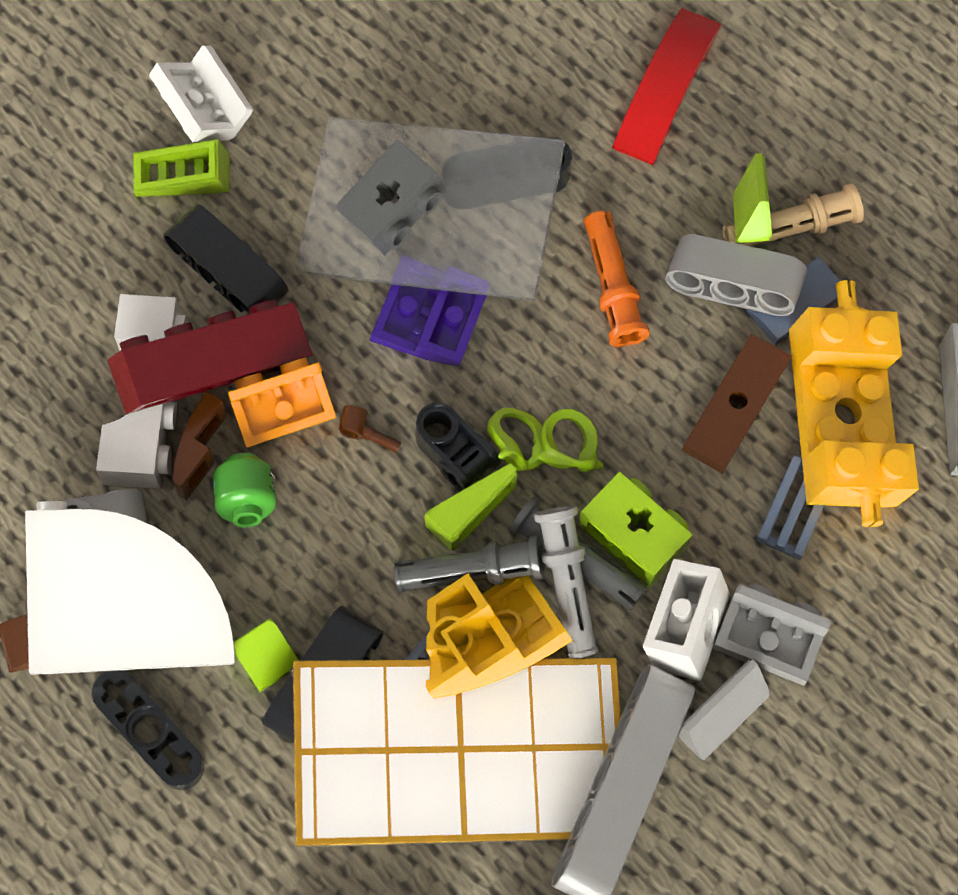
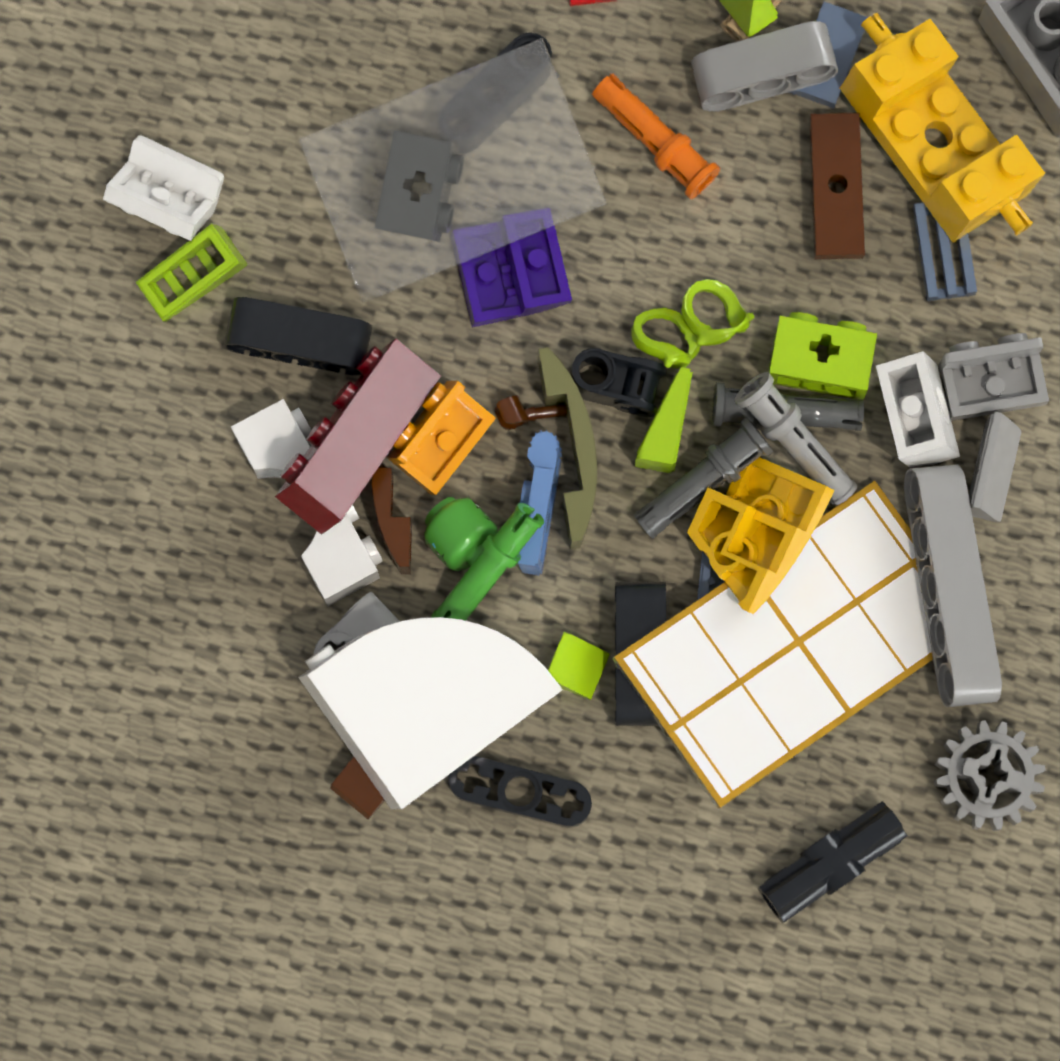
camera: 30 degrees left, 10 degrees up
(258, 519) = (499, 553): none -> bright green pin
(323, 505) = (540, 495): none -> medium blue hinge
(357, 526) = (561, 389): none -> olive slope

